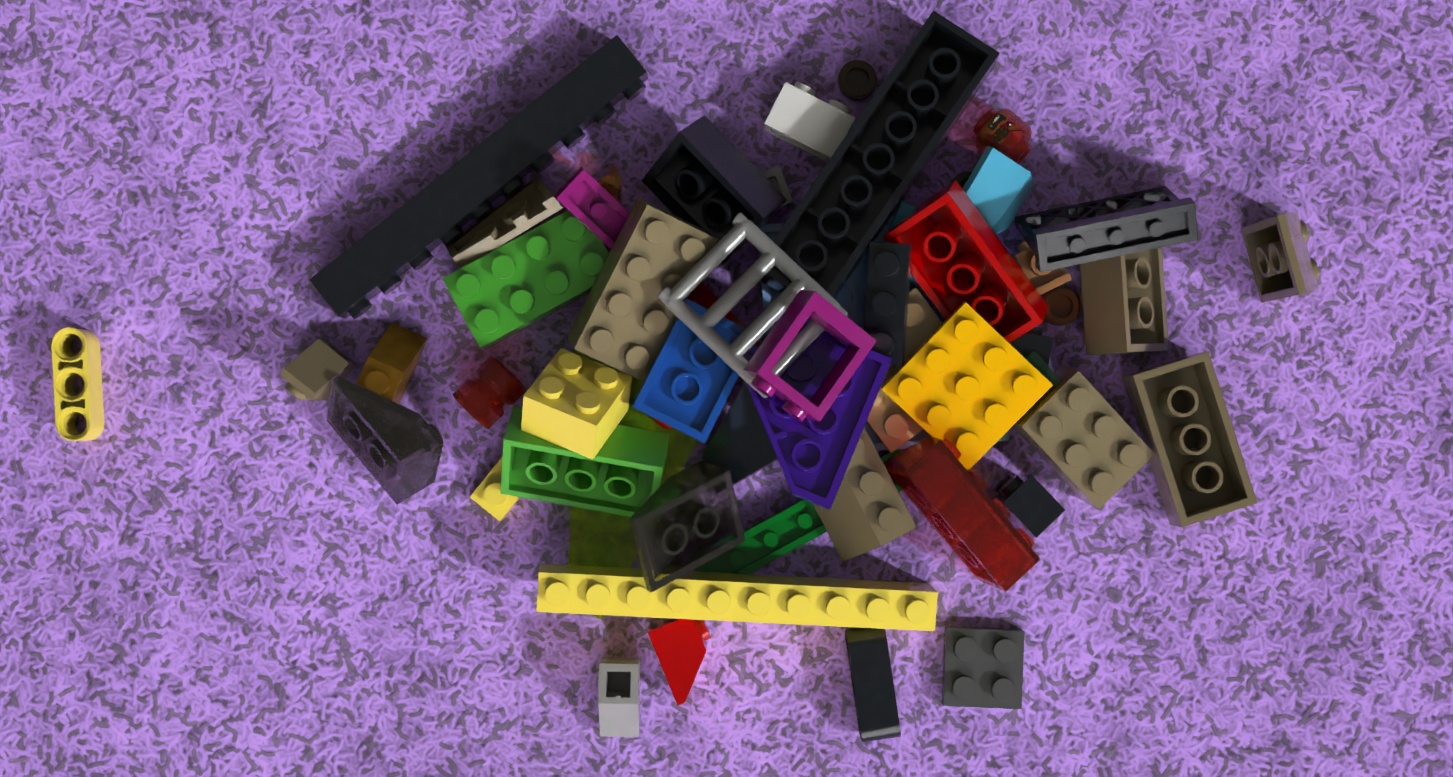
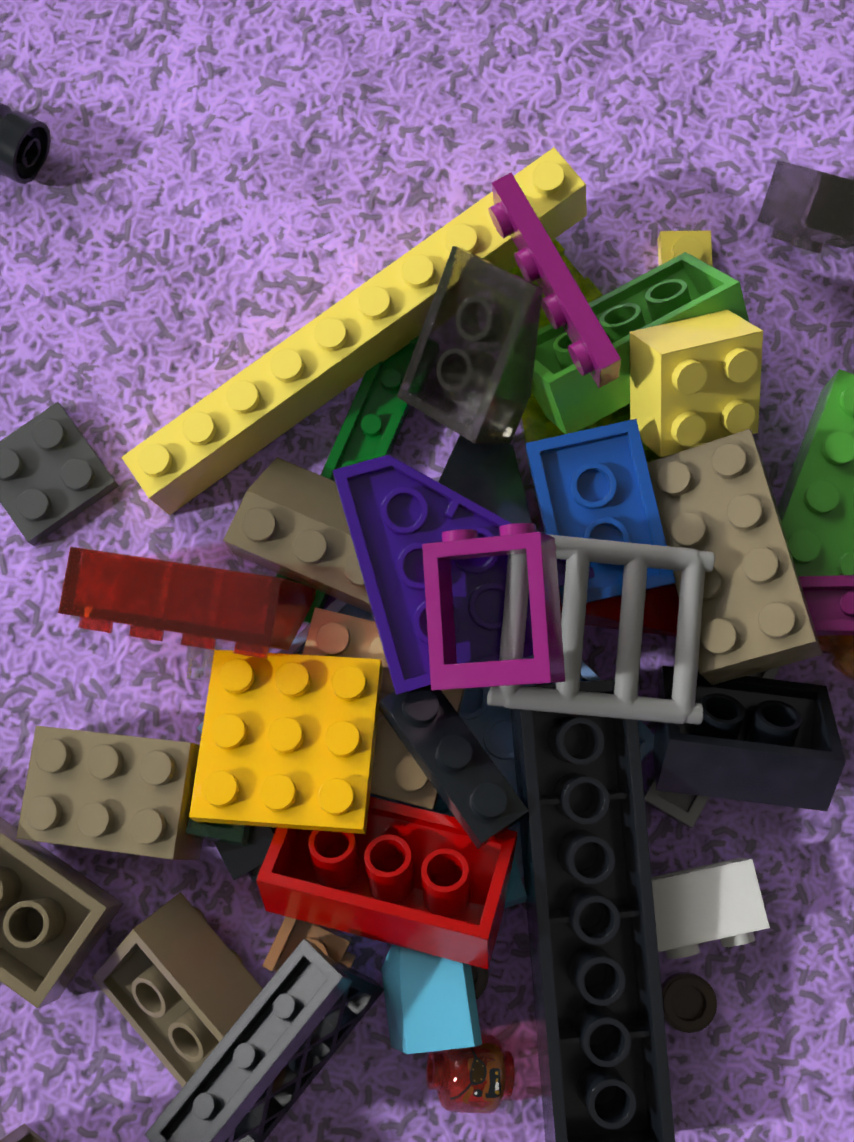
camera: 150 degrees right, 10 degrees down
(489, 392) = (787, 348): clear red wheel -> none
(613, 539) = (563, 299): none -> magenta plate
(619, 696) = (401, 159): light grey slope -> none
(680, 651) = (369, 235): red slope -> none
(872, 684) = (145, 361): black beam -> none
(1028, 502) = (122, 666): black brick -> none
(1062, 306) = (251, 928): reddish brown tile -> none

